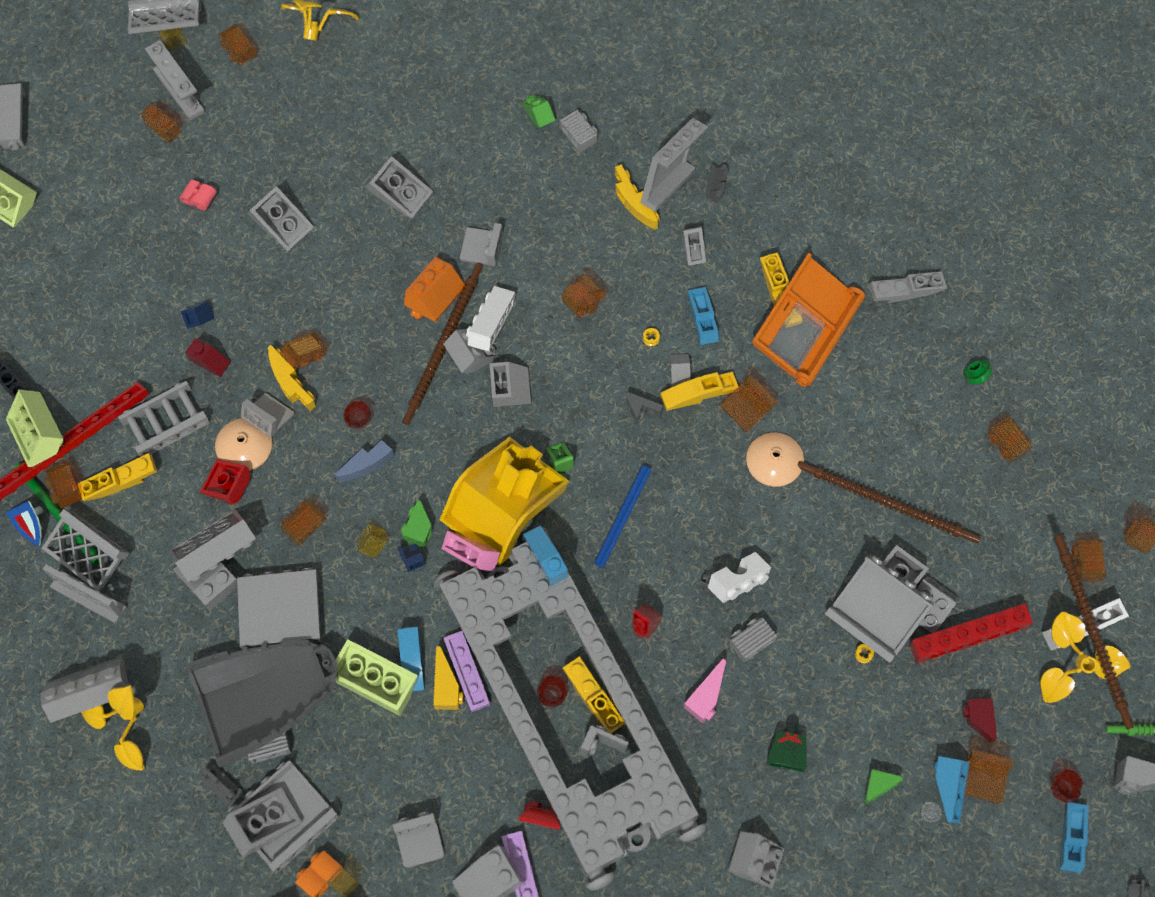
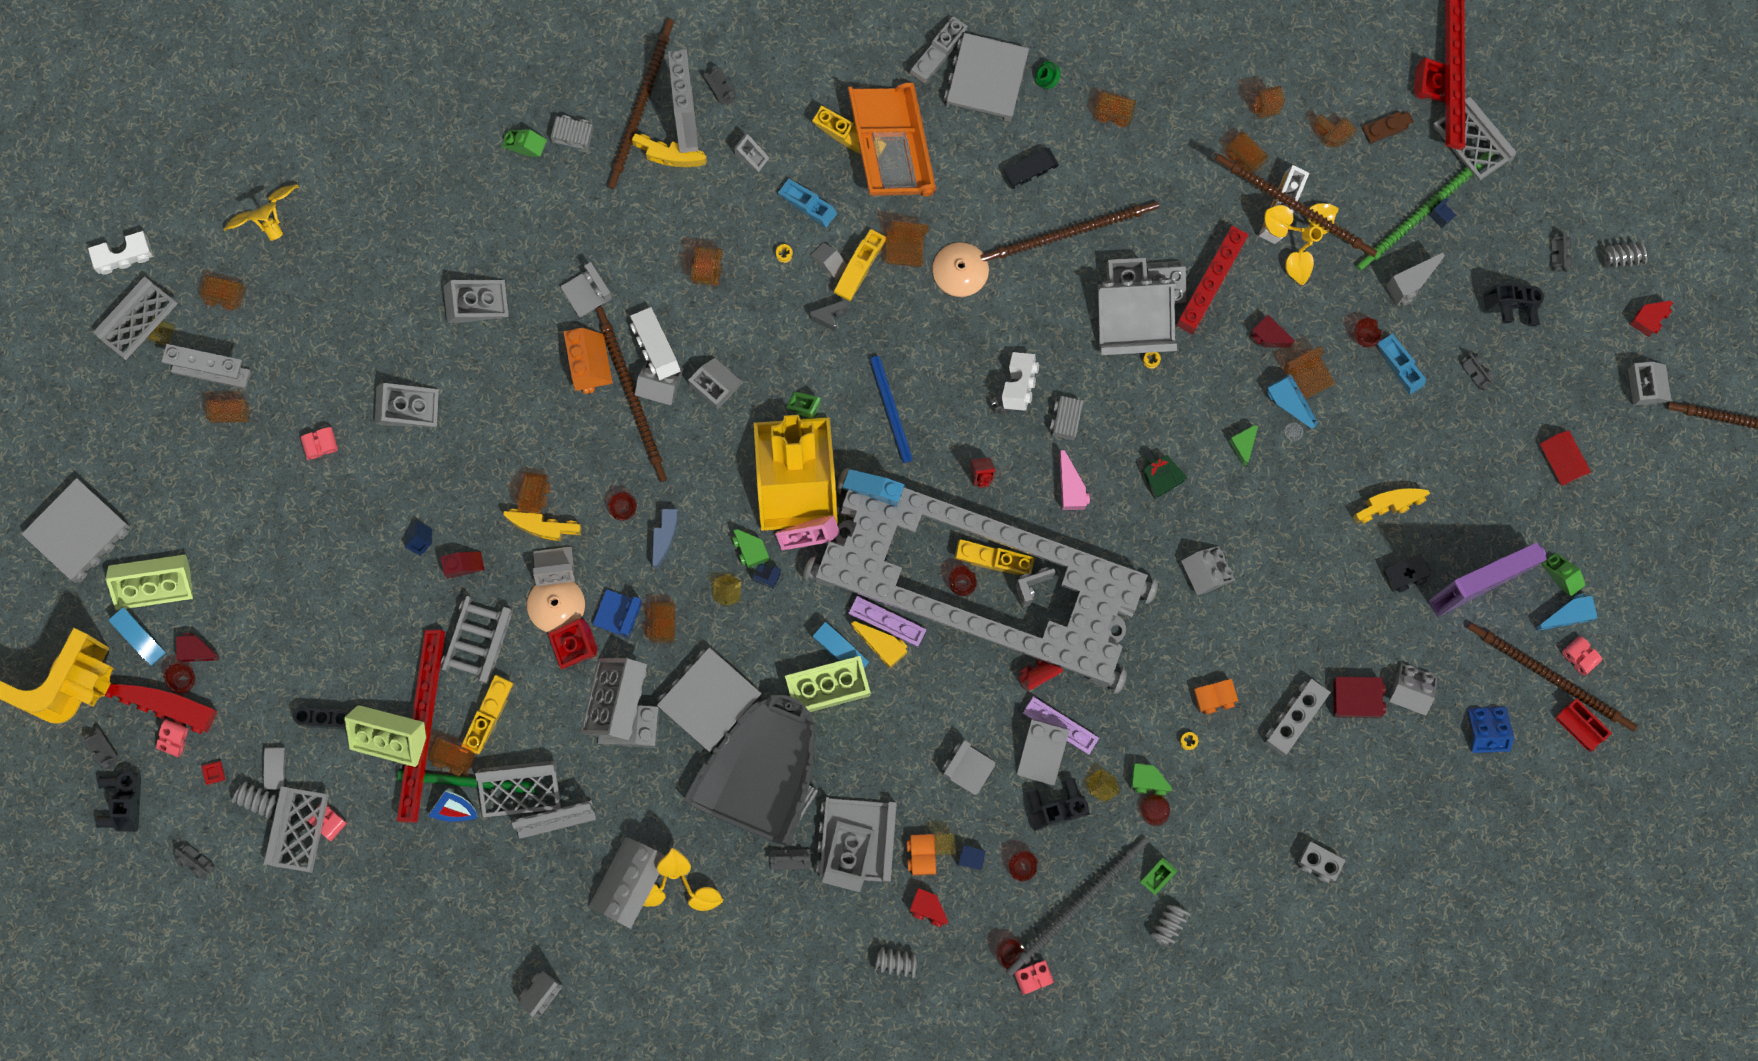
camera: 50 degrees left, 10 degrees up
(279, 488) = (617, 613): none -> blue bracket
(589, 180) = (632, 127): none -> reddish brown hose
(900, 428) = (1030, 167): none -> black beam
(928, 335) = (986, 76): none -> light grey panel

